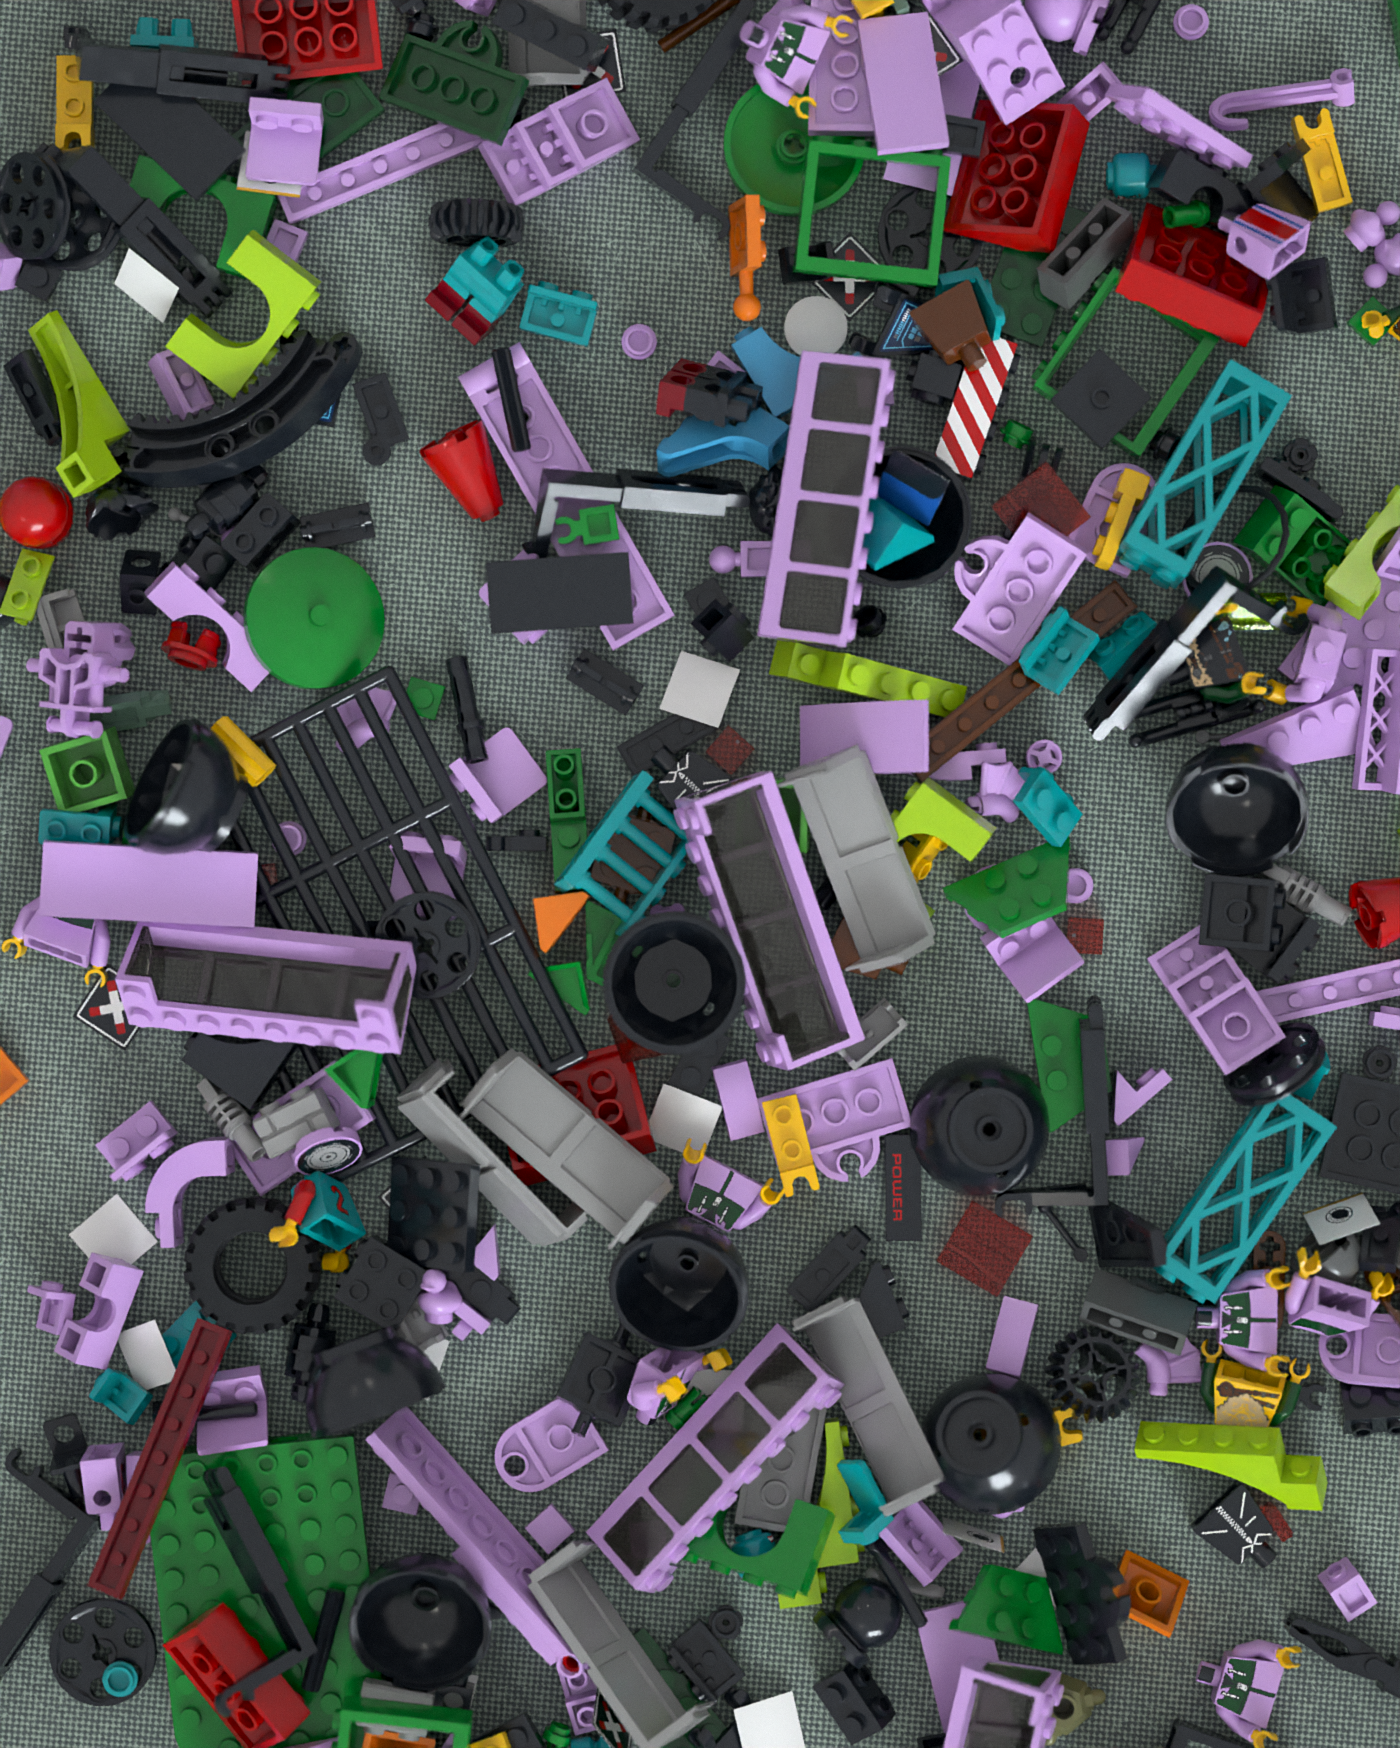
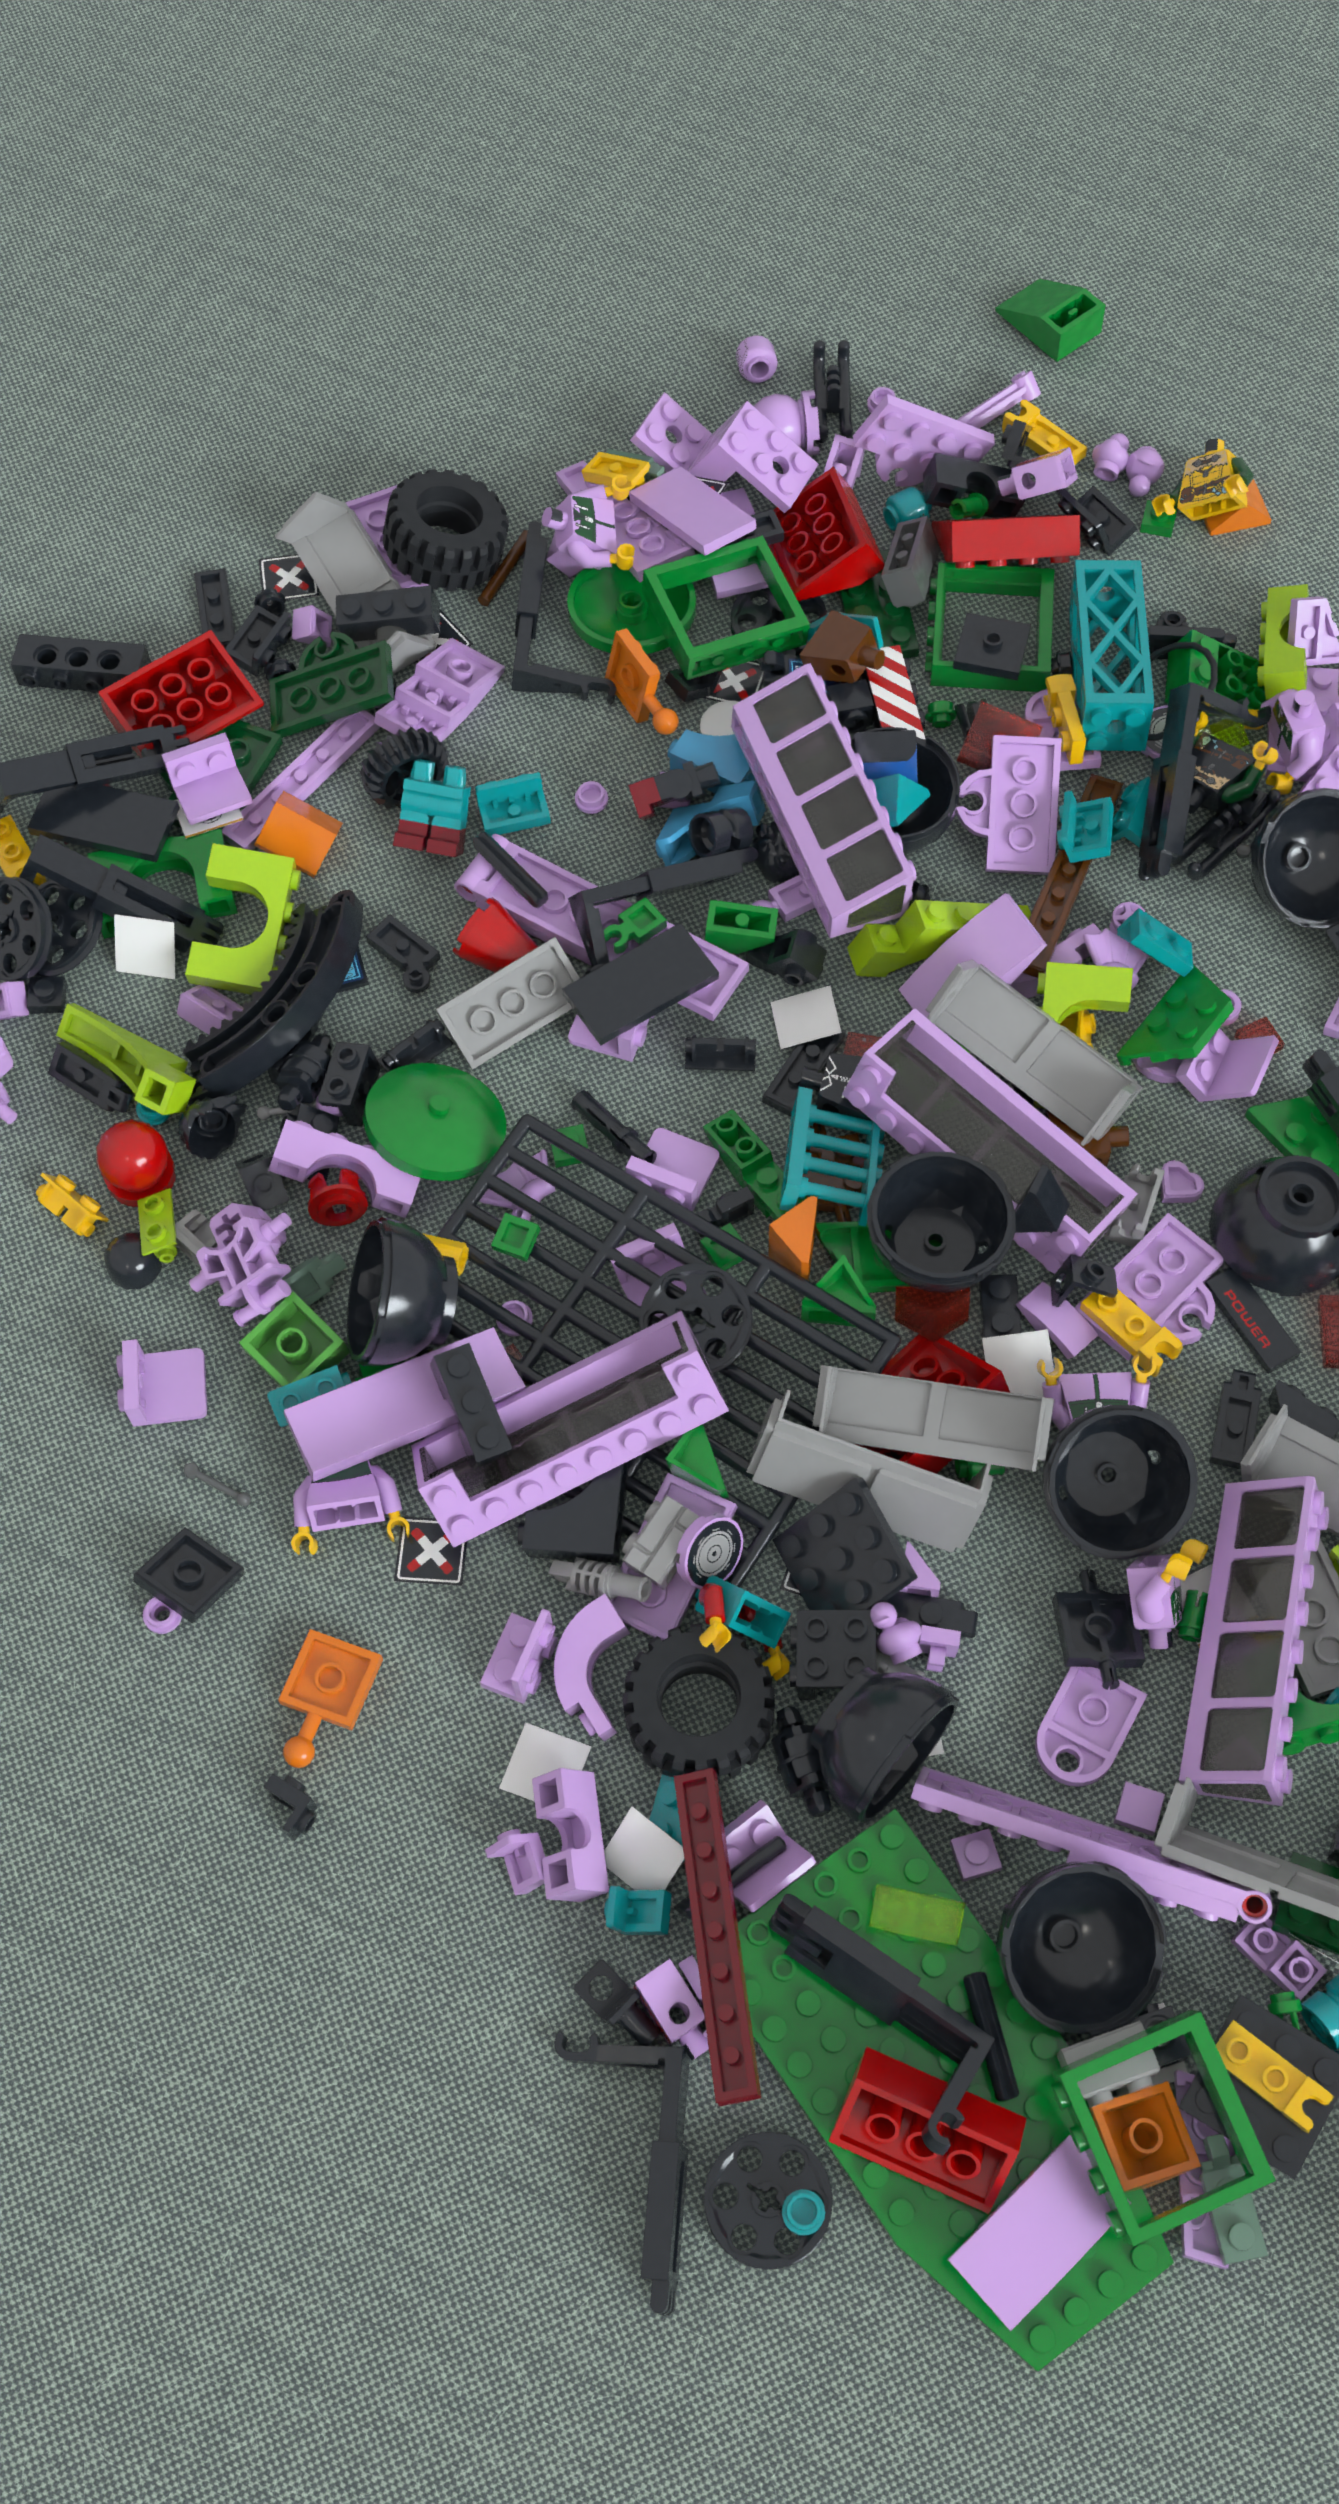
camera: 30 degrees left, 25 degrees down
(196, 926) = (476, 1414): none -> black arch
(316, 1530) = (917, 1914): none -> clear neon green slope
(318, 782) = (515, 1237): none -> green plate
(348, 233) = (299, 833): none -> orange slope
(442, 536) = (509, 1003): none -> light grey plate
(508, 872) = (718, 1255): none -> green plate
(689, 572) = (740, 926): none -> green slope
(722, 470) = (720, 831): none -> black wheel
(764, 1017) = (1041, 1204): none -> black slope
(774, 1088) = (1083, 1274): none -> black bracket
(924, 1031) = (1179, 1184): none -> lavender tile

